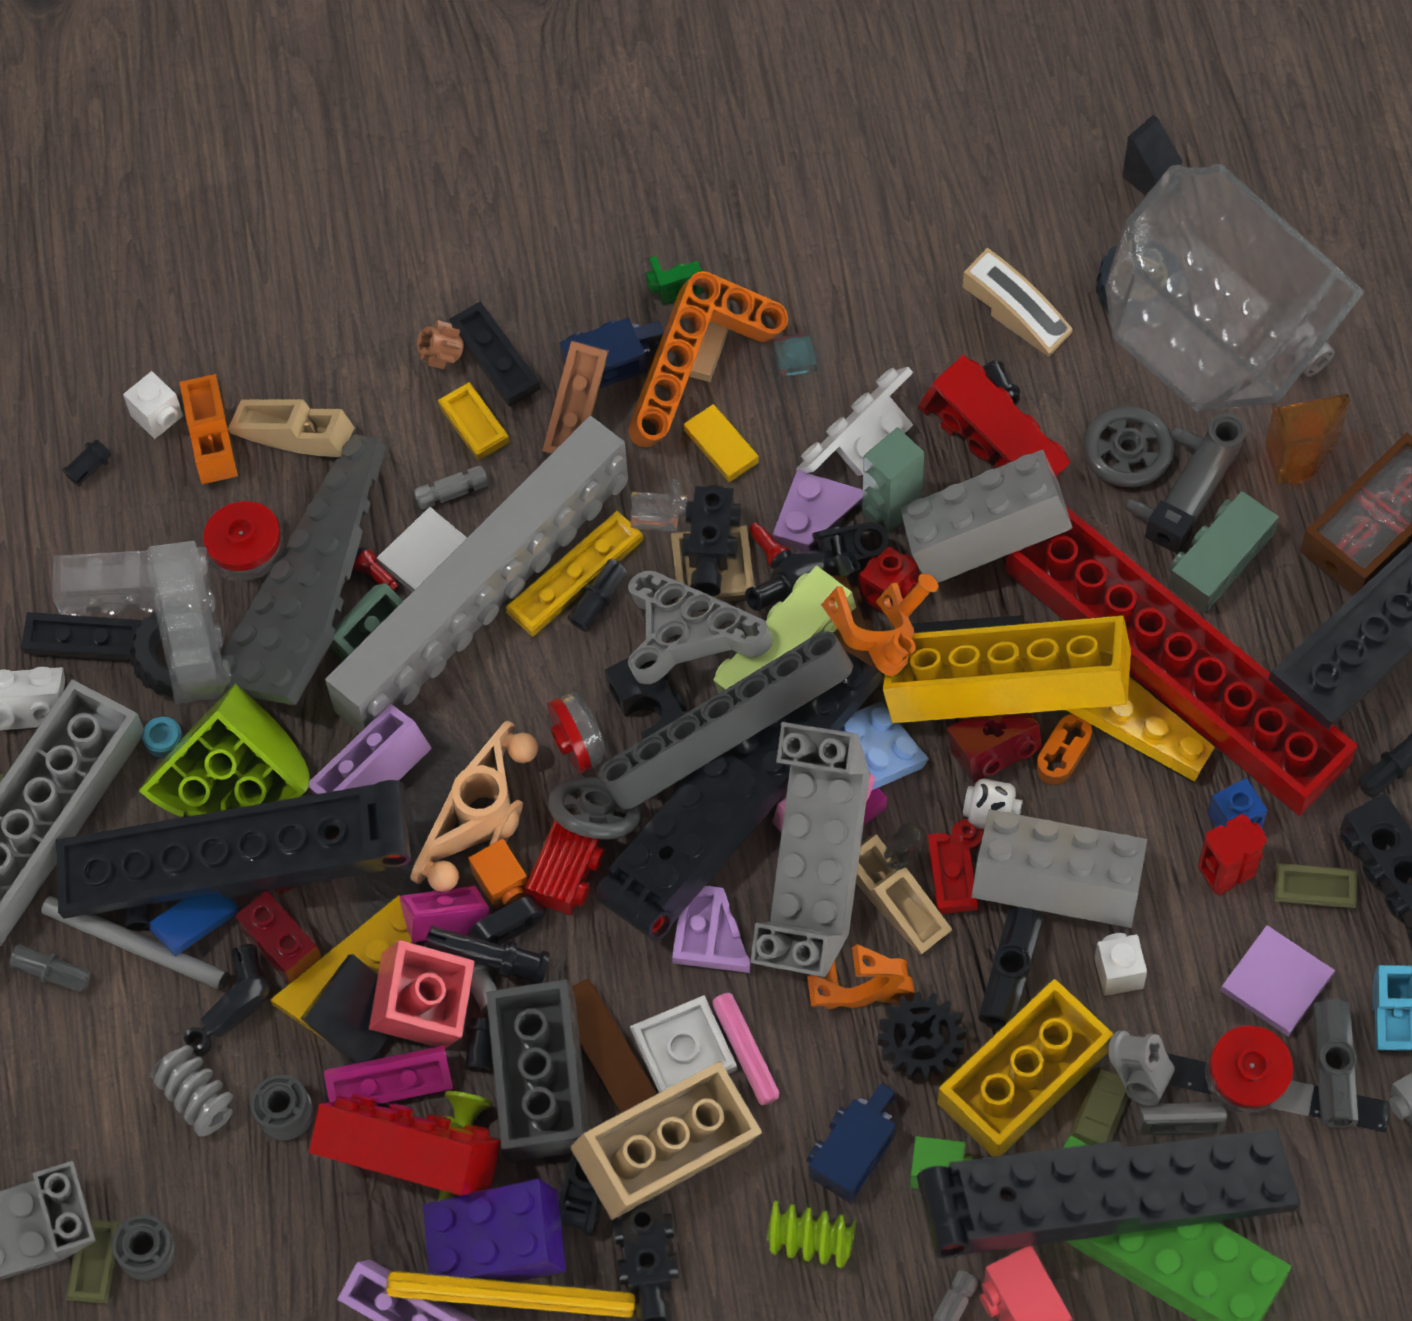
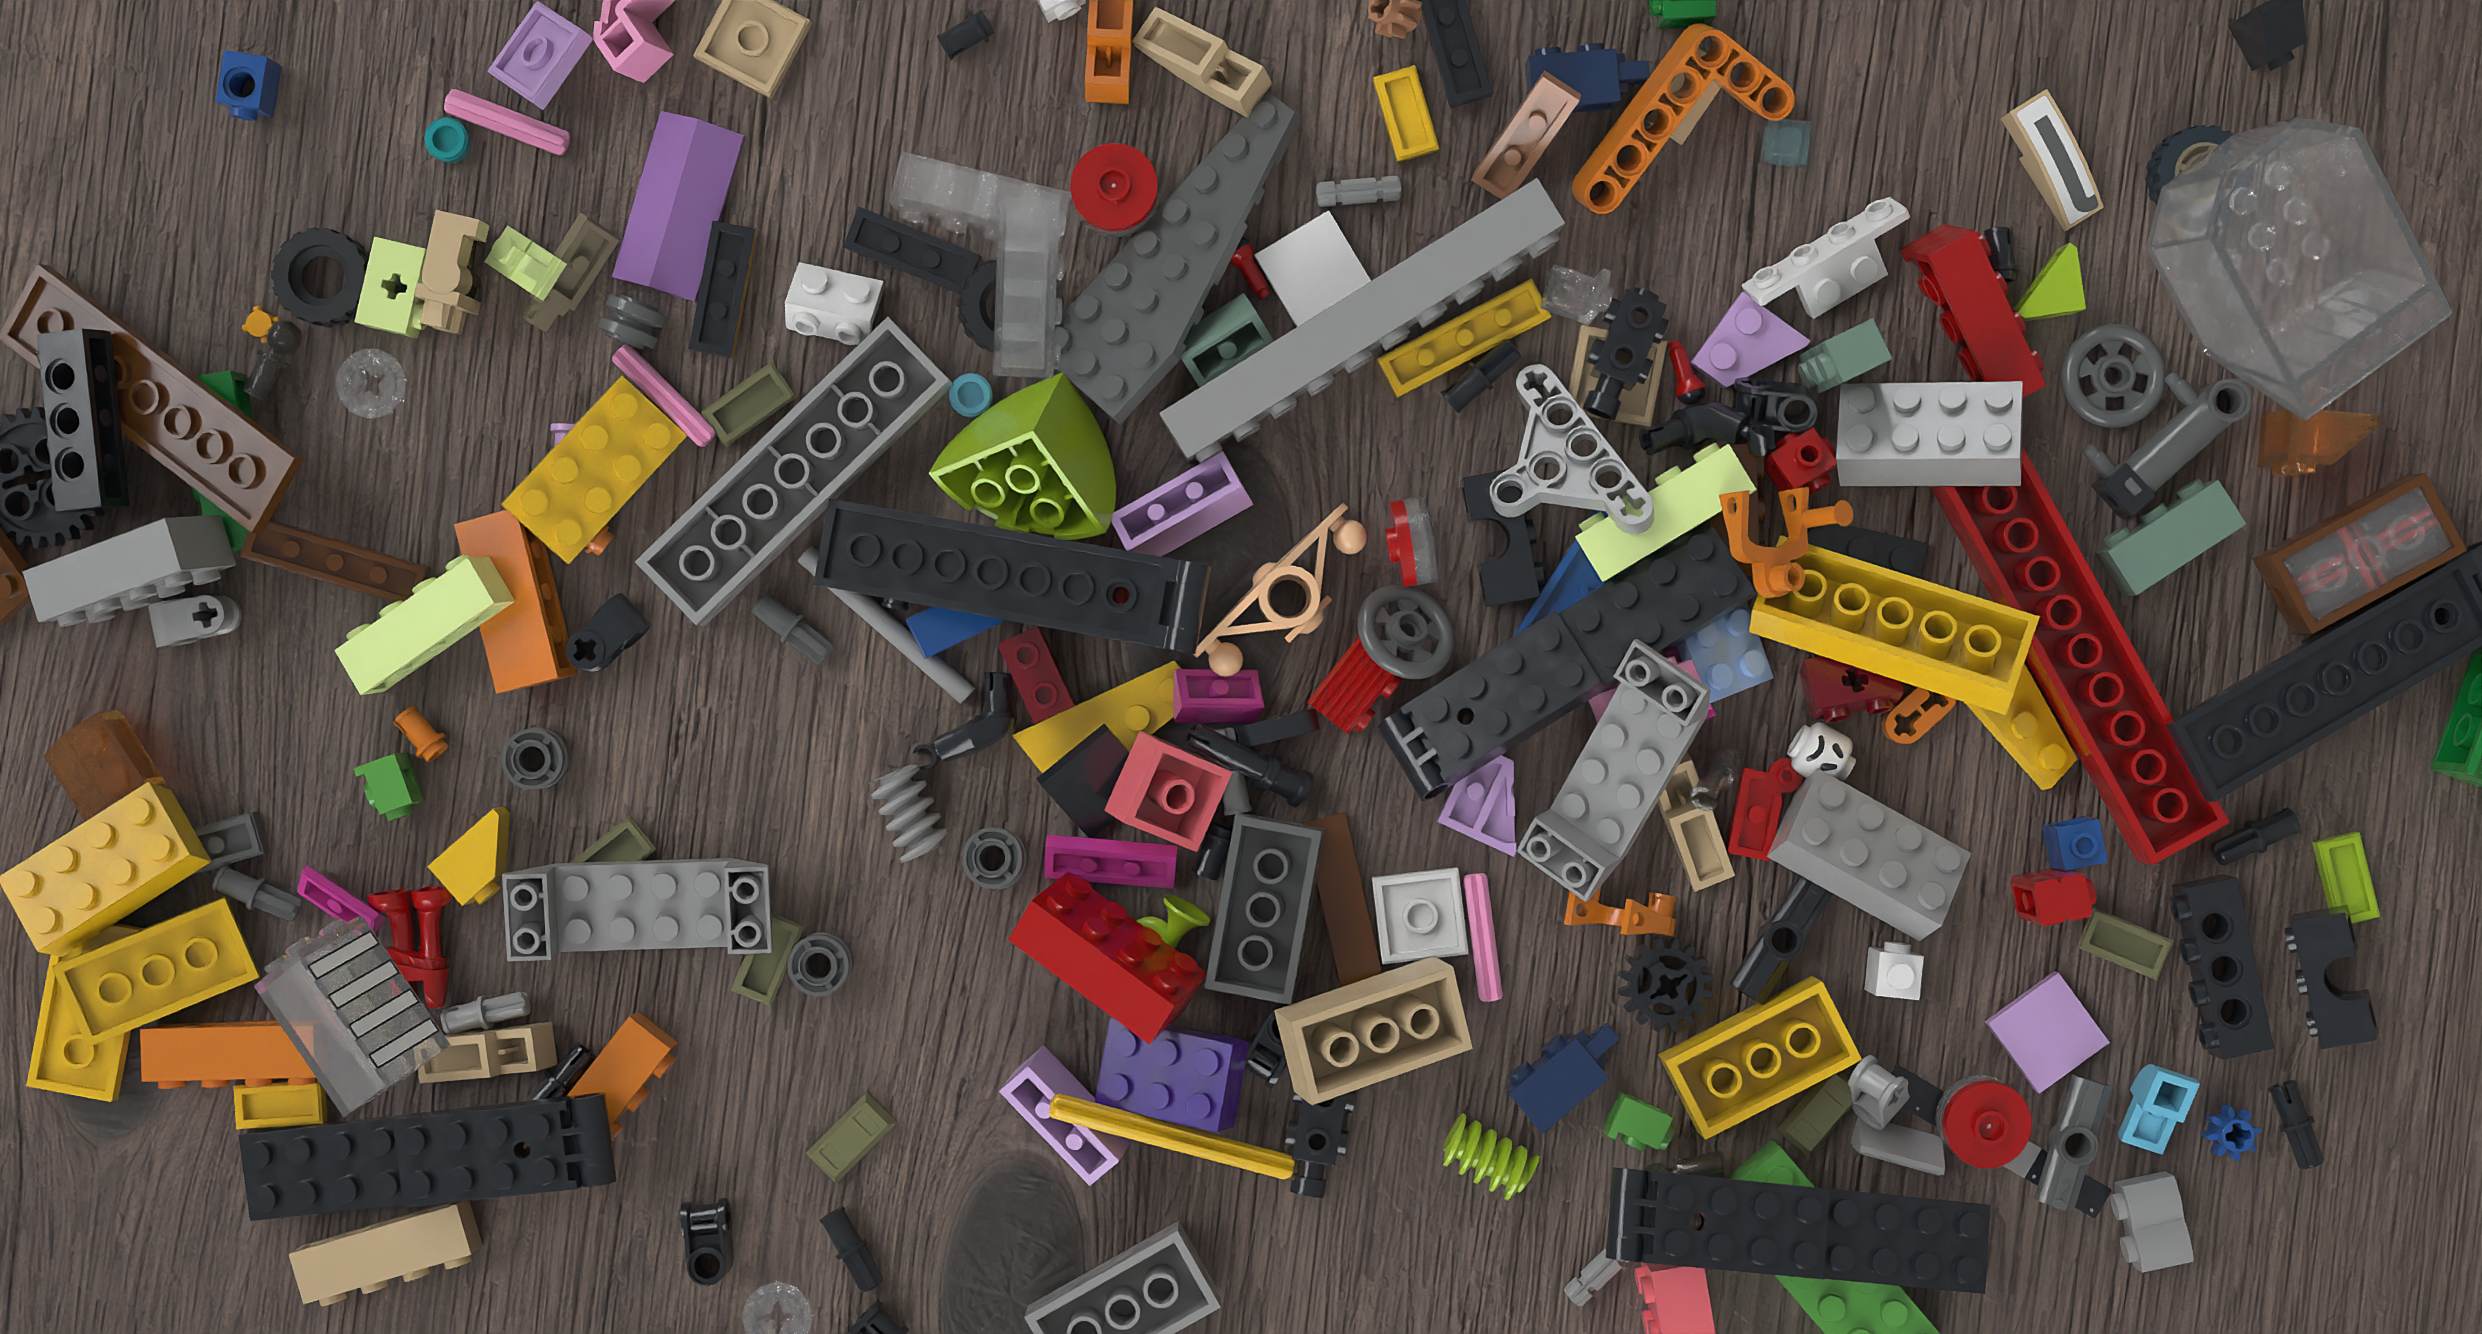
camera: 15 degrees right, 25 degrees up
(499, 874) = (1286, 673): orange brick -> none
(721, 443) = (1670, 228): yellow tile -> none
(726, 720) = (1593, 605): dark grey beam -> none
(1056, 395) = (2055, 289): none -> lime slope

